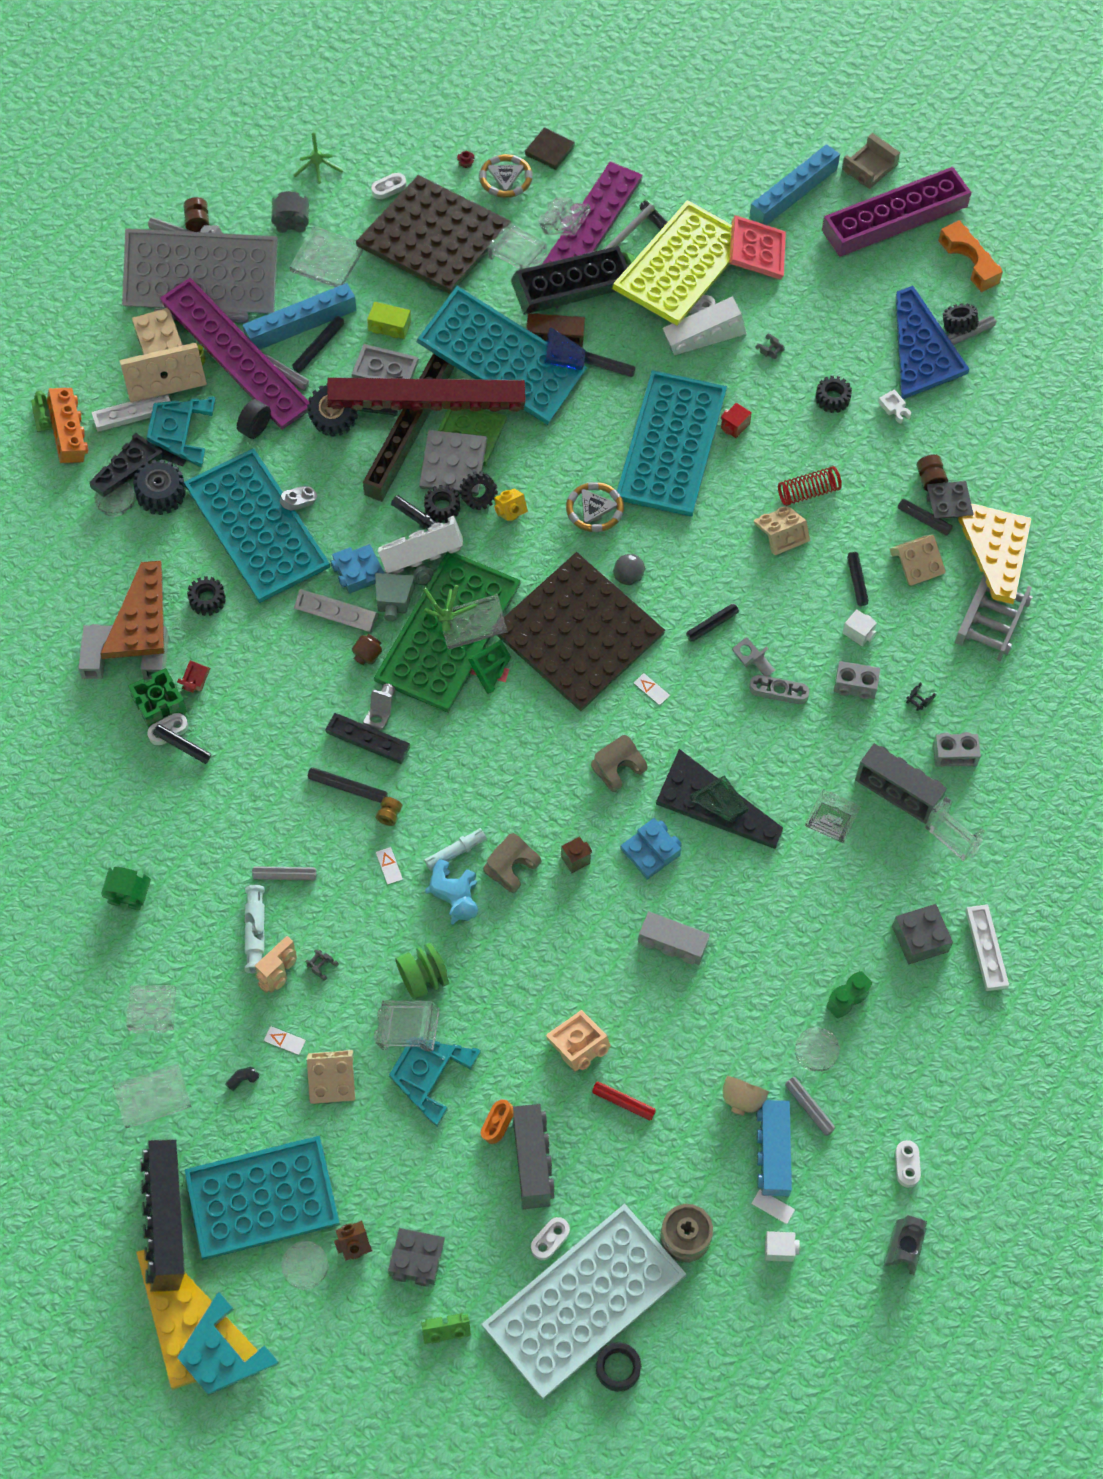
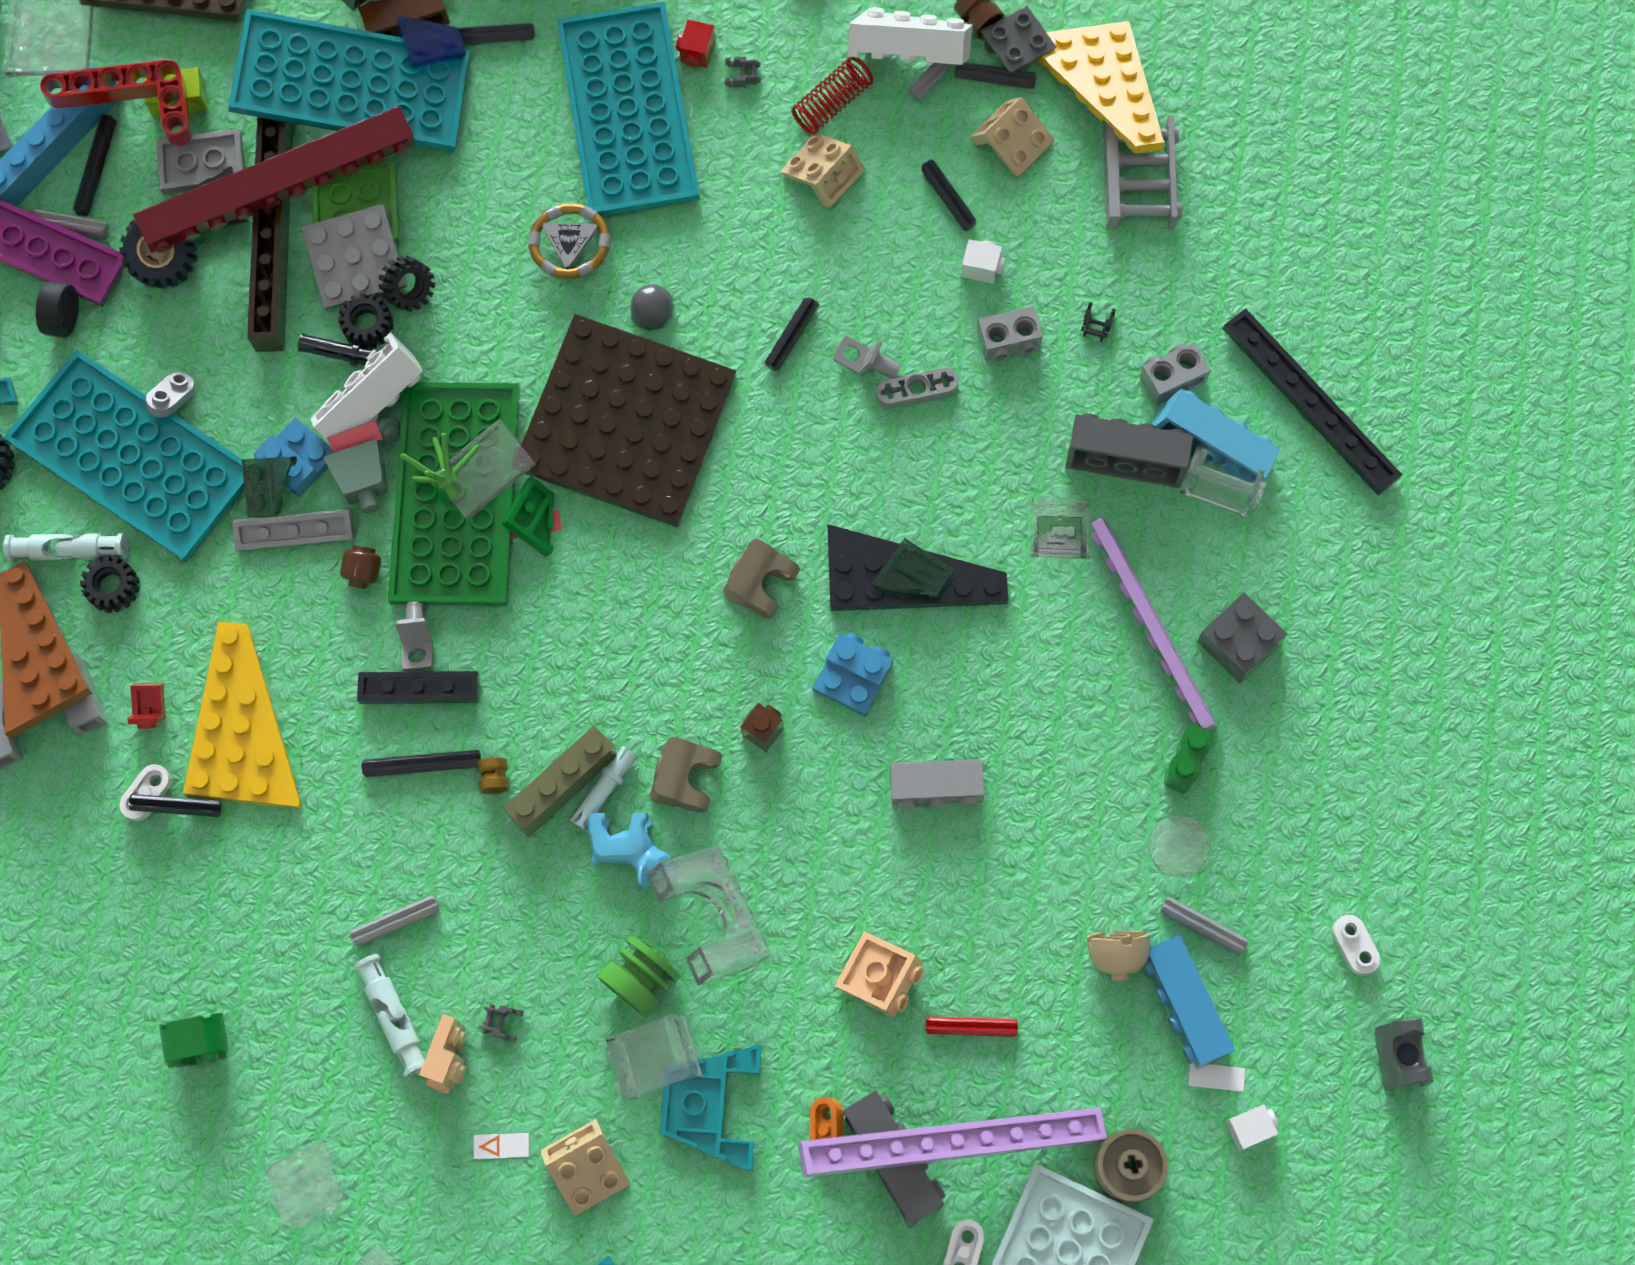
camera: 20 degrees left, 10 degrees up
(157, 697) = (94, 757): green brick -> none
(203, 567) = (84, 547): none -> light aqua piece
(240, 721) = (237, 733): none -> yellow wing
(240, 1075) = (468, 1219): black arm -> none
(331, 575) = (266, 484): none -> clear green wing
(359, 305) = (125, 90): none -> red beam
(389, 865) = (527, 848): white sticker -> none
(400, 569) = (354, 436): none -> coral sticker
(430, 832) = (560, 781): none -> olive brick
(497, 930) = (710, 876): none -> clear arch
(510, 504) = (457, 284): yellow brick -> none
(574, 1158) = (951, 1142): none -> lavender plate
(651, 689) = (754, 457): white sticker -> none
(756, 454) = (743, 79): none -> dark grey piece
(865, 893) = (1158, 635): none -> lavender plate
(876, 469) = (910, 37): none -> white wedge
(889, 497) = (928, 80): none -> light grey axle
(967, 801) = (1227, 441): none -> medium azure wedge
(987, 947) = (1327, 619): white plate -> none
(1042, 807) = (1312, 402): none -> black plate

